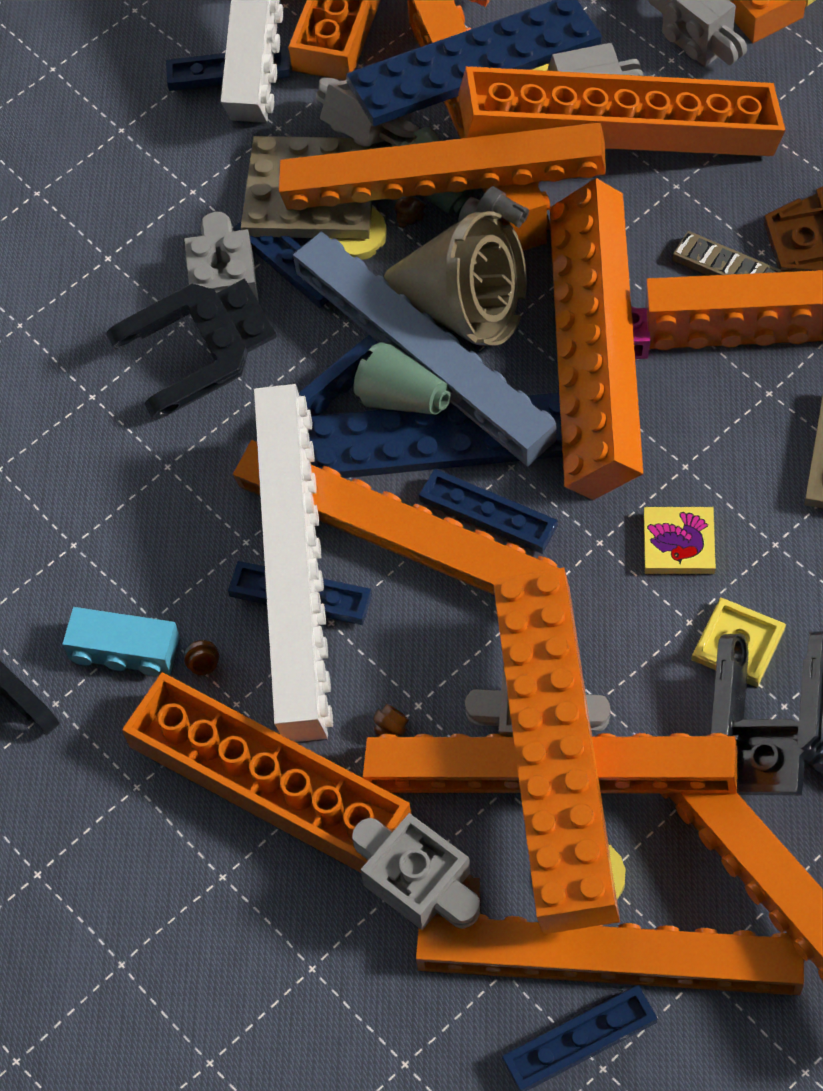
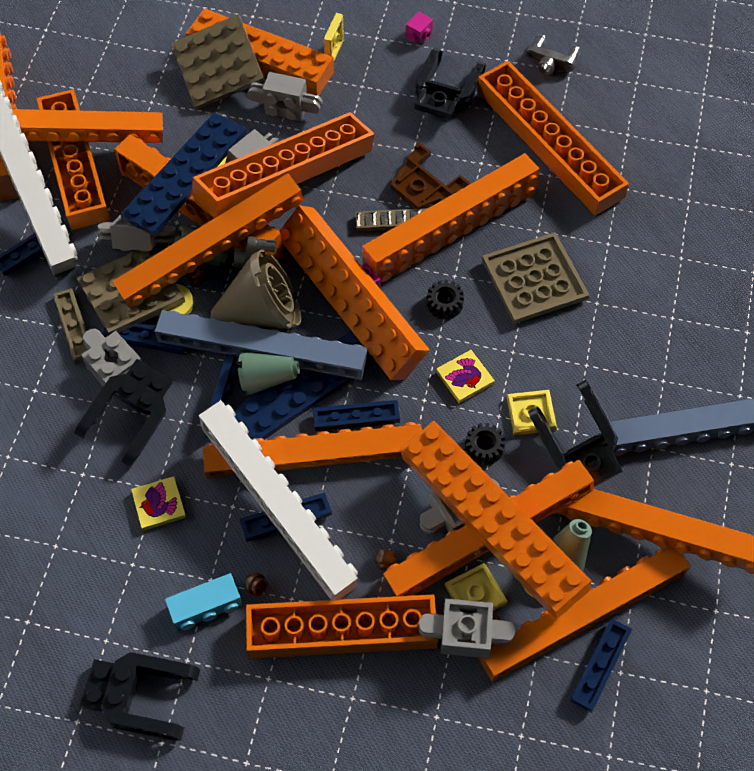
camera: 40 degrees left, 0 degrees up
(156, 485) = (158, 503): none -> light yellow tile
(211, 188) = (71, 322): none -> dark tan tile
(485, 835) = (476, 586): none -> light yellow tile
(637, 628) = (484, 432): none -> black tyre
(643, 856) = (575, 541): none -> sand green cone
(727, 401) = (449, 290): none -> black tyre

